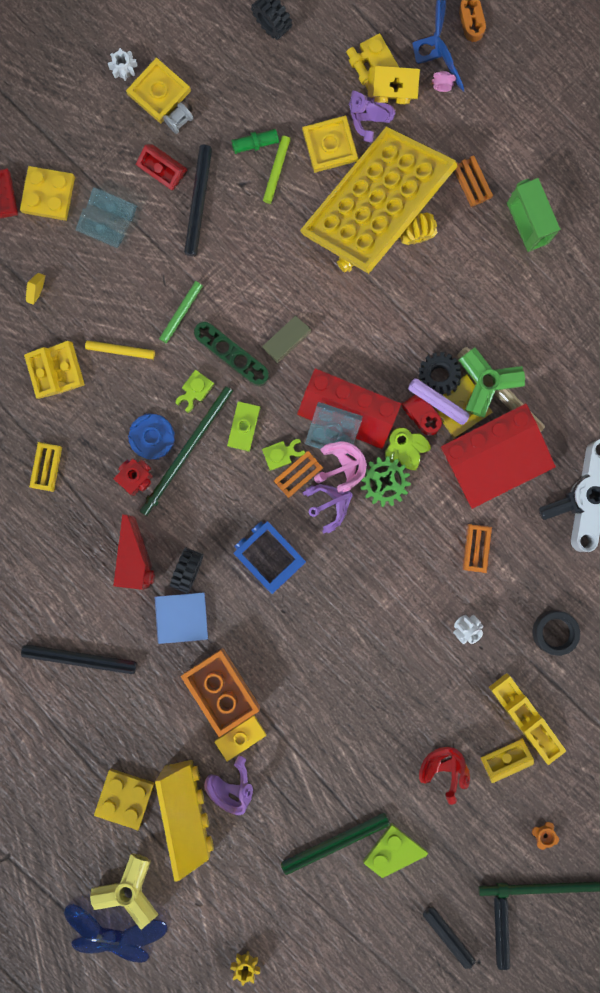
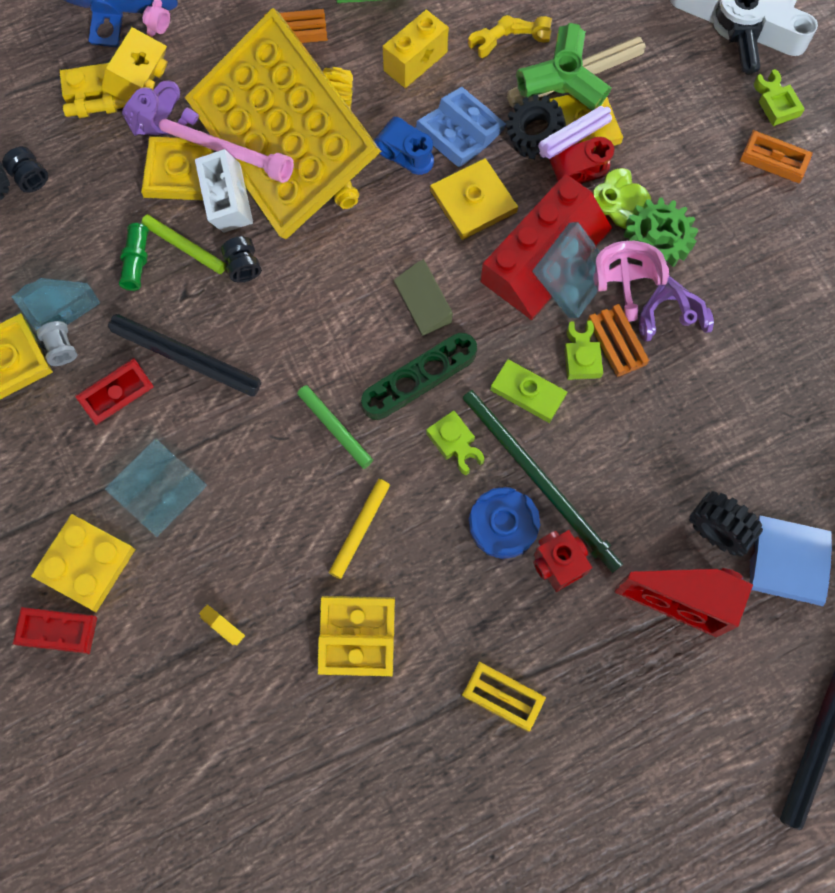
camera: 70 degrees left, 15 degrees down
(202, 103) = (54, 301): none -> clear light blue slope
(244, 544) = (758, 394): blue window -> none
(274, 211) = (240, 256): none -> black wheel
(294, 43) = (25, 169): none -> black wheel
(316, 181) = (223, 191): none -> white brick
(340, 209) = (277, 165): none -> bright pink piece
(373, 349) = (473, 198): none -> yellow plate
(397, 287) = (406, 146): none -> blue piece
(428, 323) = (461, 126): none -> medium blue slope
(477, 271) = (415, 48): none -> yellow brick
(498, 456) = (661, 93): red slope -> none
(522, 540) = (777, 101): none -> lime plate
(523, 329) = (506, 25): none -> yellow piece

